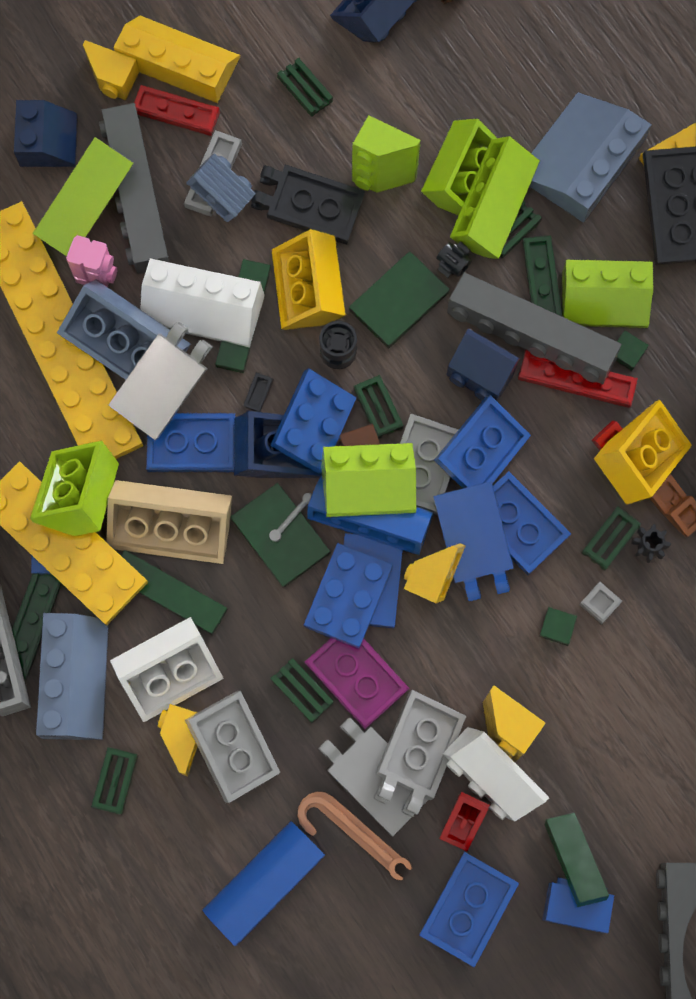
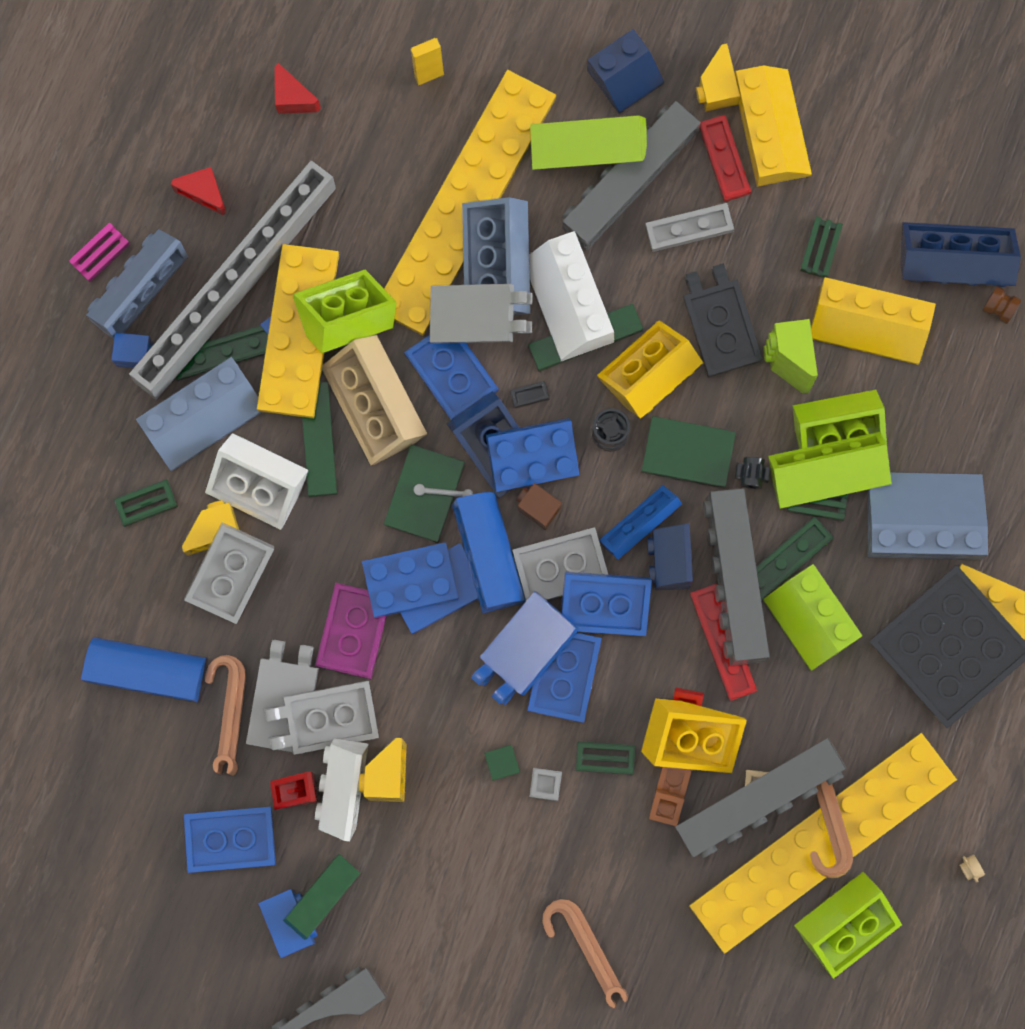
camera: 60 degrees right, 5 degrees up
(91, 261) = (538, 188): bright pink brick -> none
(221, 187) = (677, 243): sand blue brick -> none
(284, 671) = (301, 593): dark green tile -> none
(369, 479) = (509, 531): lime slope -> none
(387, 429) = (573, 518): dark green tile -> none
(395, 83) = (872, 321): none -> yellow slope
(432, 374) = (640, 522): none -> blue plate
(434, 573) = (472, 635): yellow slope -> none
(631, 350) = (778, 668): dark green tile -> none
(657, 539) = (623, 784): black gear -> none

